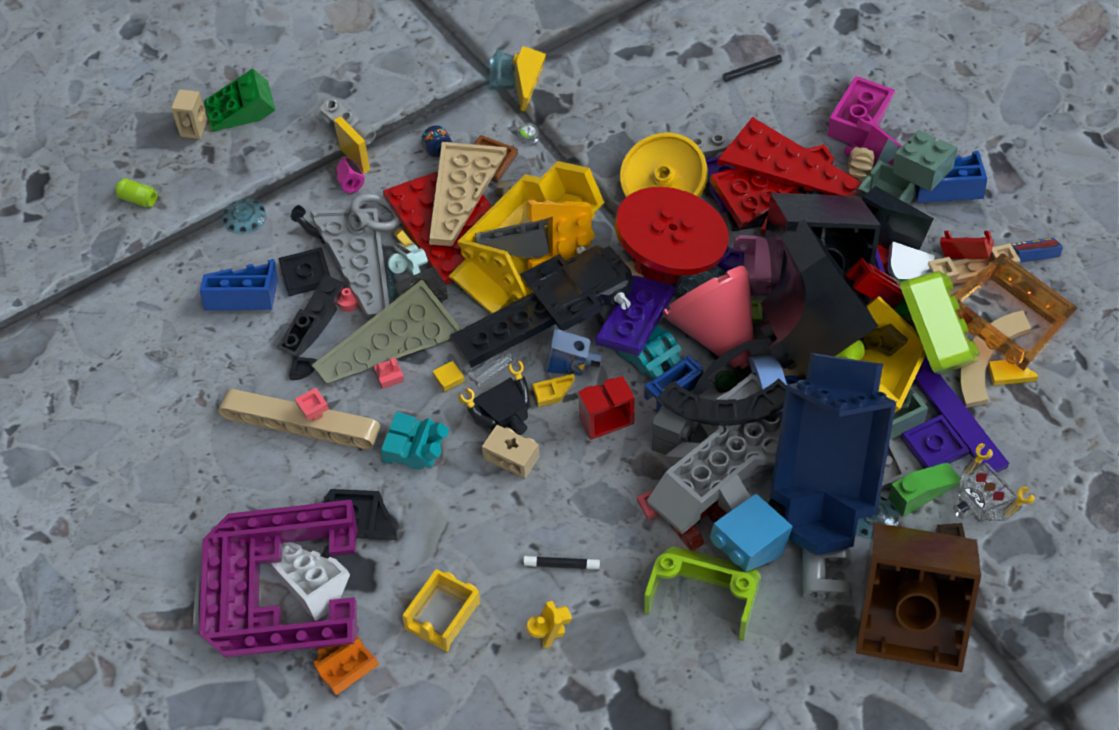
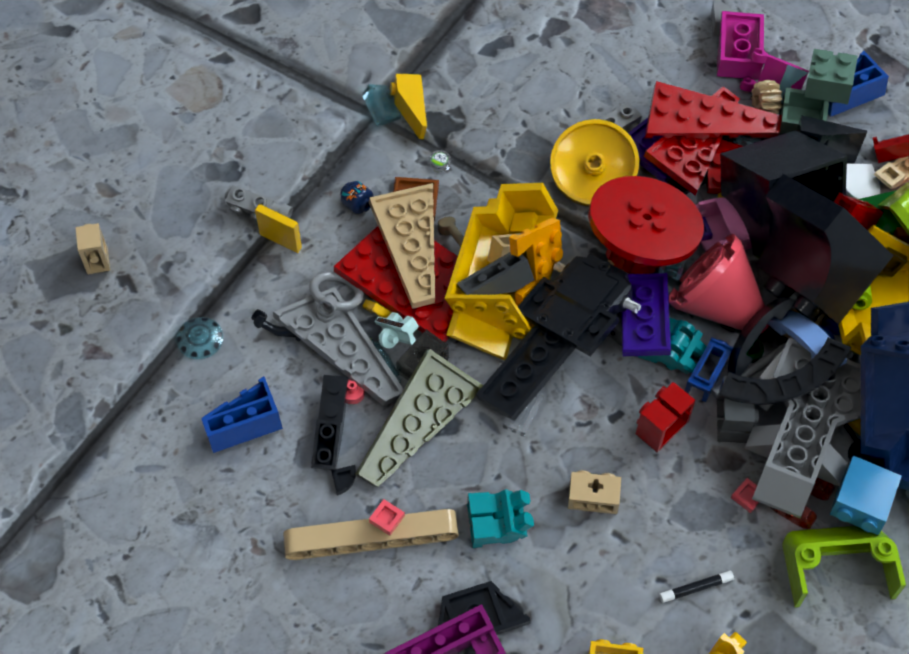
camera: 25 degrees left, 5 degrees up
(136, 193) = (75, 351): lime head -> none
(240, 102) = (135, 219): green slope -> none
(303, 270) = (293, 376): black tile -> none
(349, 175) = (289, 261): dark pink rock -> none
(388, 373) = (432, 454): coral tile -> none
(448, 376) = (492, 436): yellow tile -> none
(501, 405) = (563, 448): torso -> none
(552, 390) = (597, 416): yellow tile -> none
(570, 354) = (600, 375): sand blue torso -> none
(752, 68) = (615, 30): black bar -> none

